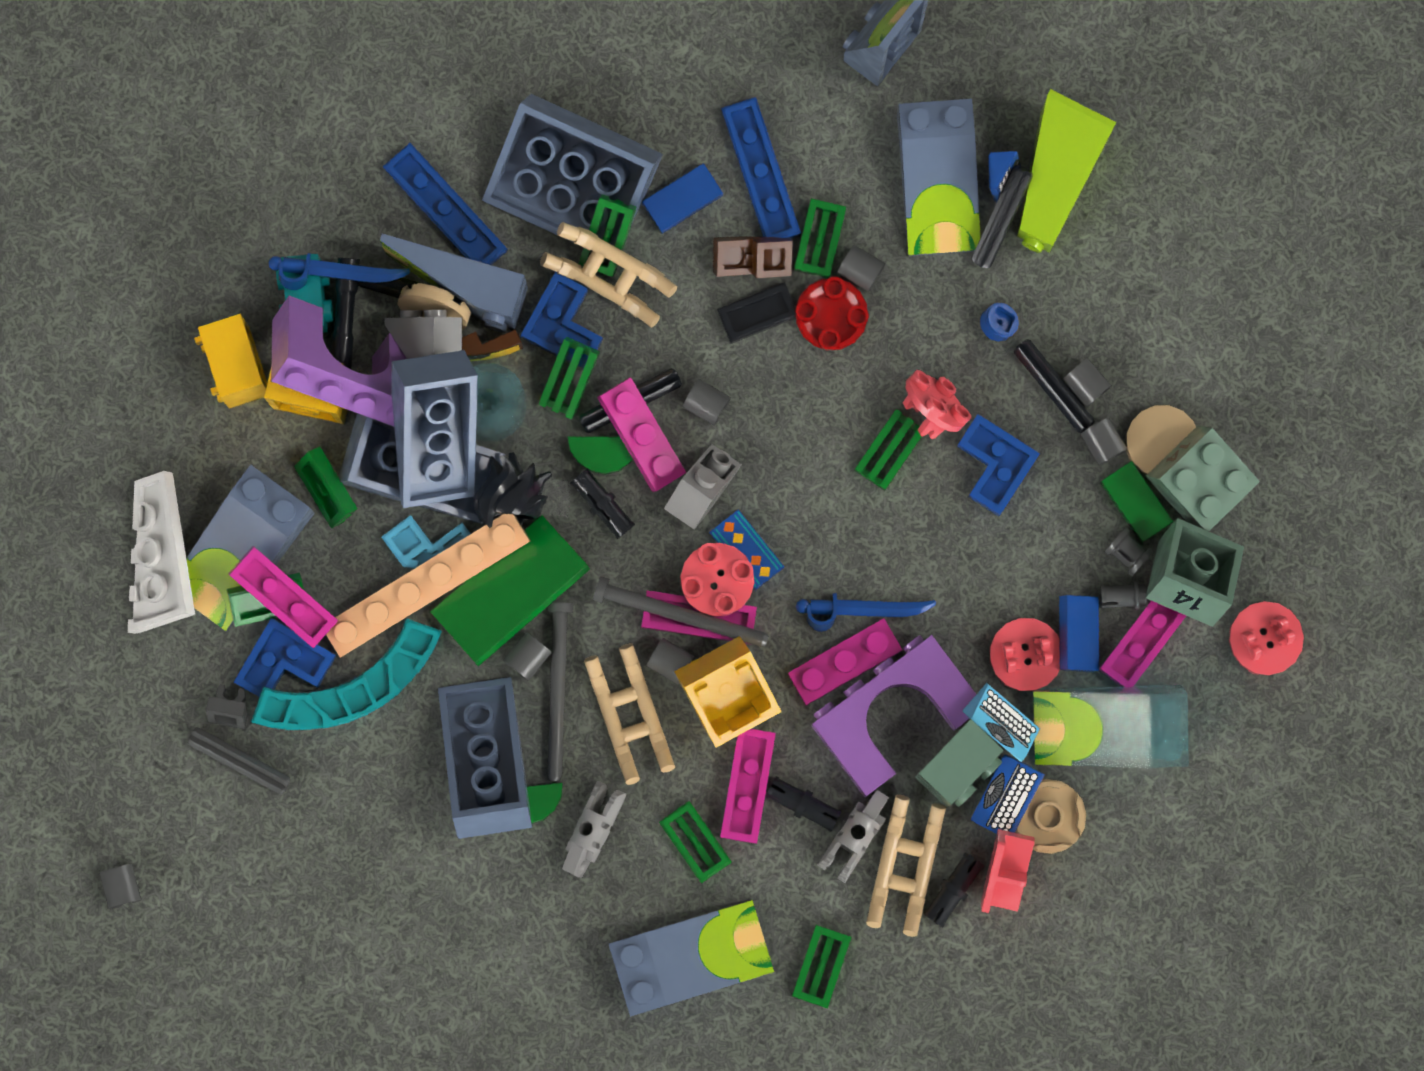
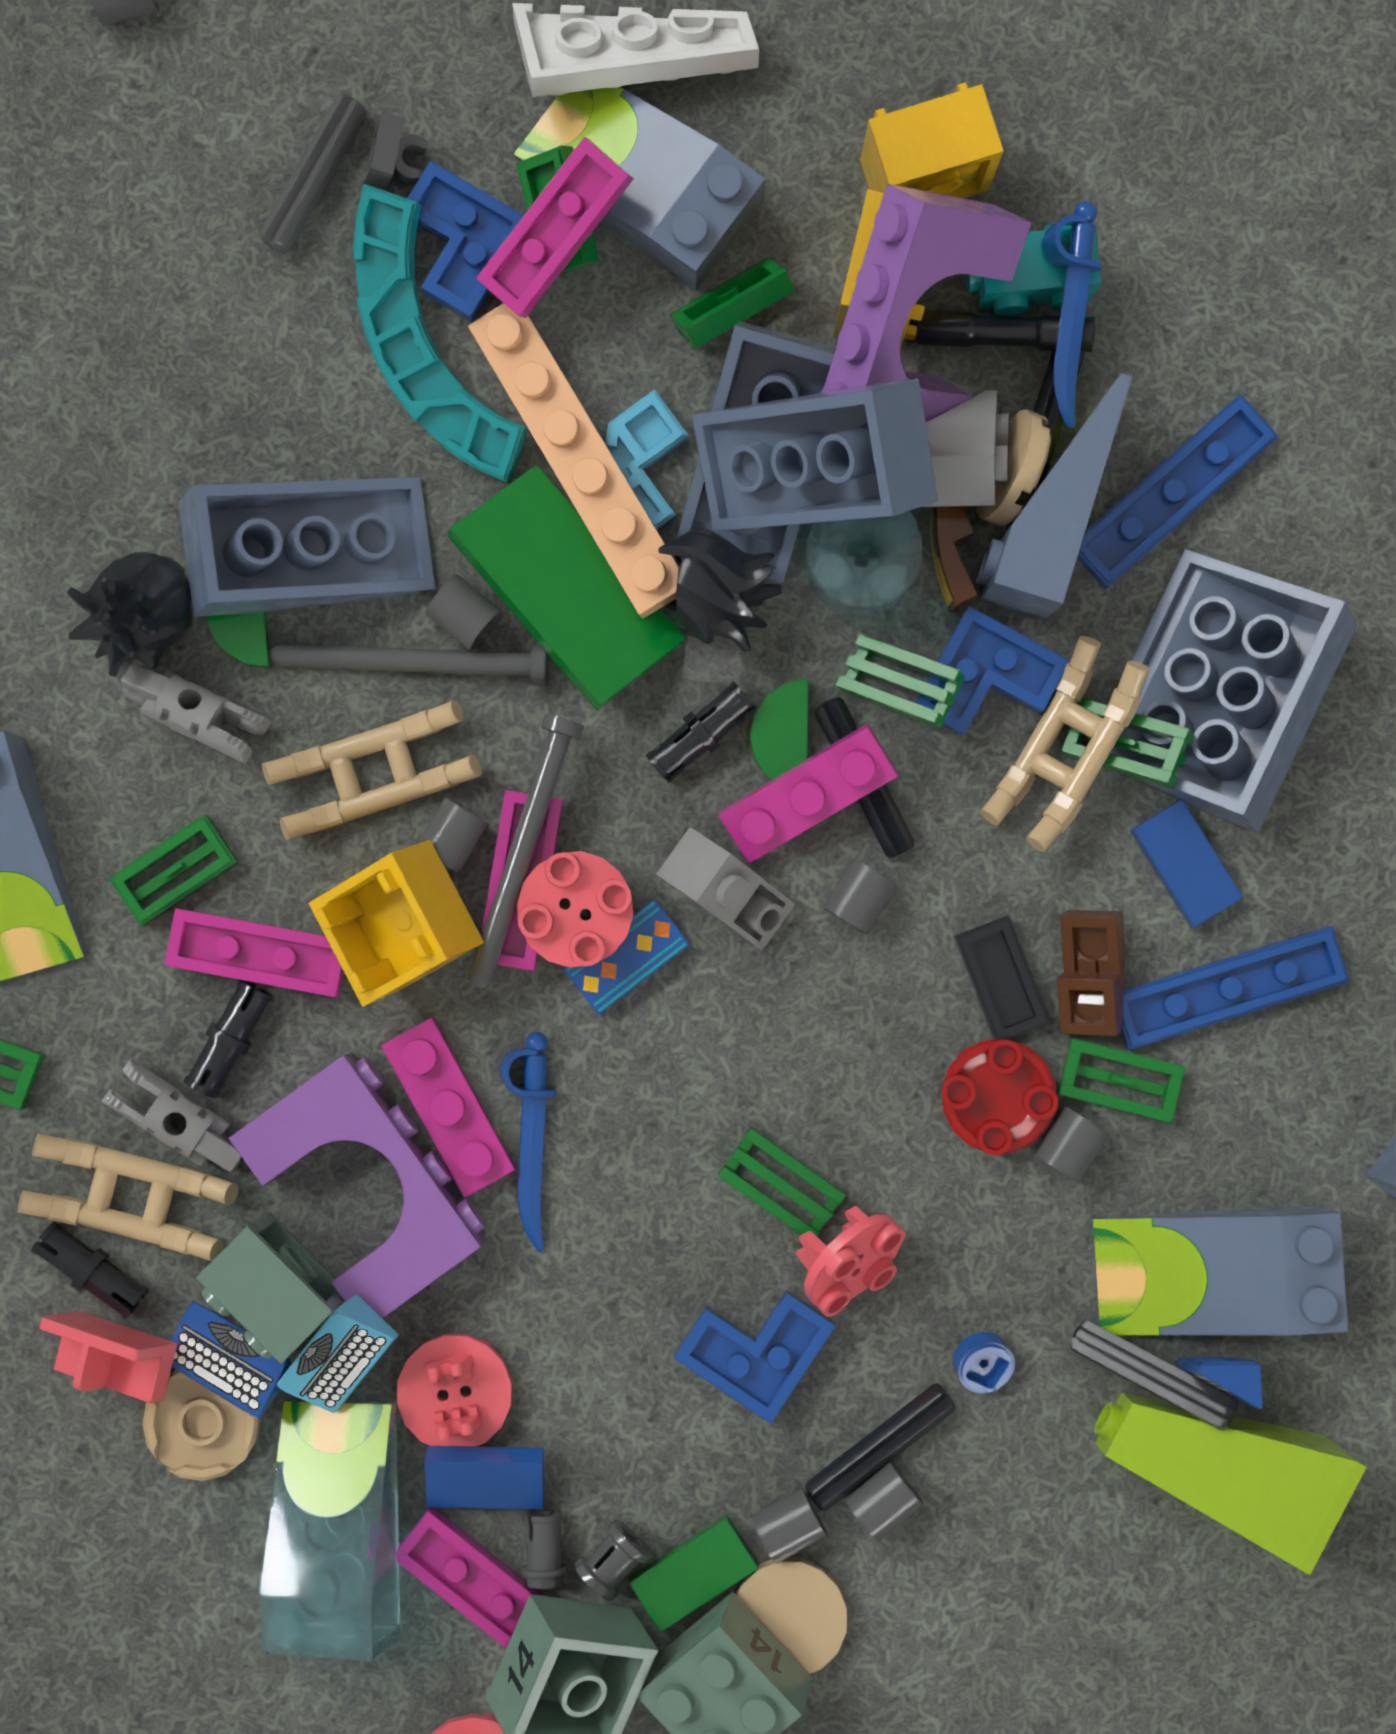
camera: 90 degrees right, 5 degrees up
(527, 864) = (135, 609): none -> black hair

